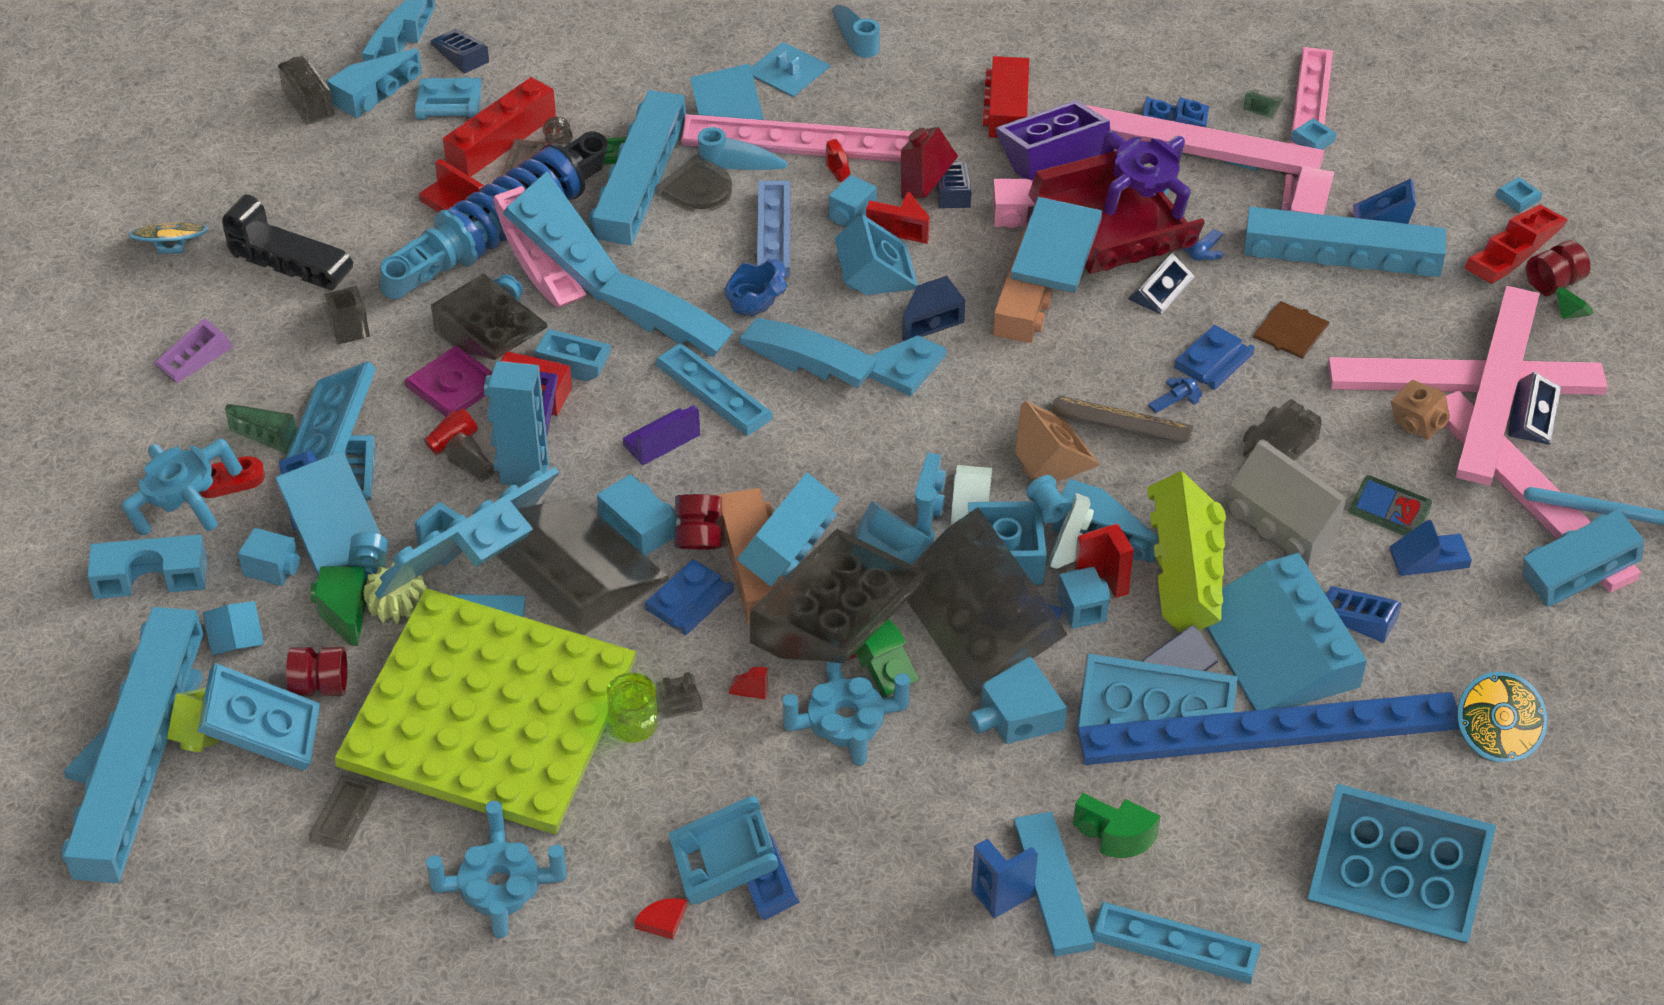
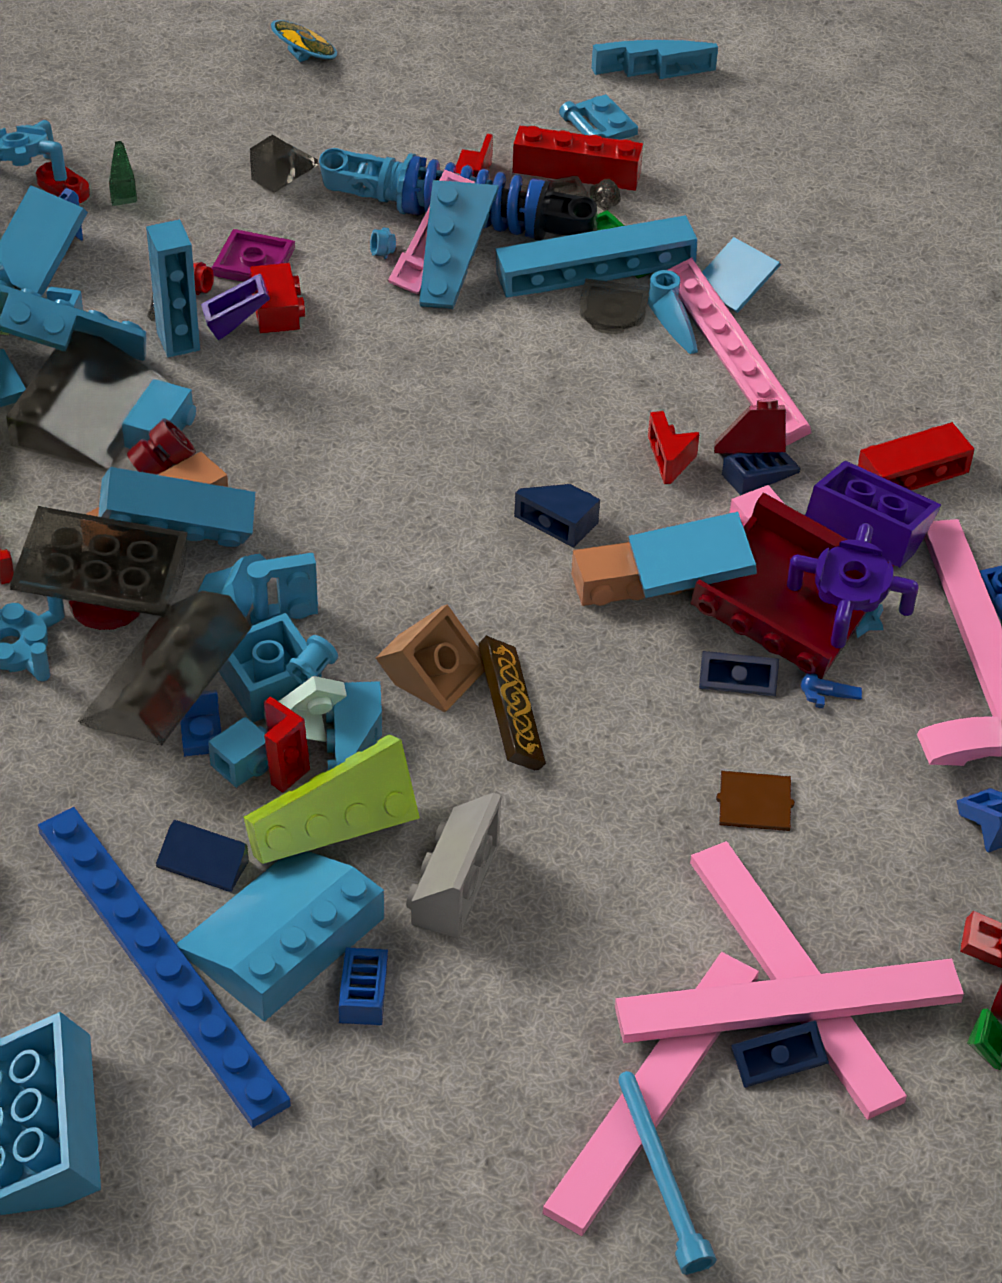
camera: 60 degrees right, 0 degrees up
(194, 338) = (188, 109): medium lavender slope -> none
(288, 253) = (330, 97): black beam -> none
(306, 90) = (530, 38): clear smoke brick -> none
(332, 412) = (147, 202): dark azure tile -> none
(365, 446) = (127, 230): dark azure slope -> none
(371, 81) = (574, 68): dark azure slope -> none
(461, 50) = (666, 103): dark blue slope -> none
(484, 319) = (325, 237): clear smoke slope -> none
(582, 354) = (332, 308): dark azure slope -> none
(662, 310) = (420, 344): dark azure slope -> none
(663, 434) = (270, 400): dark purple panel -> none
(689, 597) = (76, 488): blue plate -> none
(714, 389) = (356, 413): dark azure tile -> none
(755, 287) = (493, 384): blue hair -> none
(774, 222) = (591, 371): medium blue plate -> none
(788, 69) = (829, 305): dark azure piece -> none
(814, 352) = (438, 451): dark azure slope -> none
(836, 160) = (720, 379): red tile -> none
(850, 200) = (666, 398): dark azure brick -> none
(859, 33) = (917, 330): dark azure piece -> none
(874, 259) = (599, 451): dark azure slope -> none
(886, 657) = (80, 632): green brick -> none
(907, 364) = (480, 524): dark azure wing -> none
(970, 485) = (339, 628): light aqua slope -> none
(1019, 704) = (76, 751): dark azure torso -> none
(1143, 691) = (137, 835): dark azure wing -> none
(1181, 388) = (589, 741): blue piece -> none
(1214, 357) = (661, 749): blue plate -> none
(1286, 429) = (570, 836): clear smoke brick -> none
(1345, 241) = (918, 799): dark azure brick -> none
(1390, 505) = (532, 966): slope -> none
(1420, 409) = (690, 939): medium nougat brick -> none
(1427, 552) = (490, 1023): blue slope -> none
(1502, 717) = (270, 1151): shield -> none
(1583, 557) = (551, 1156): dark azure brick -> none

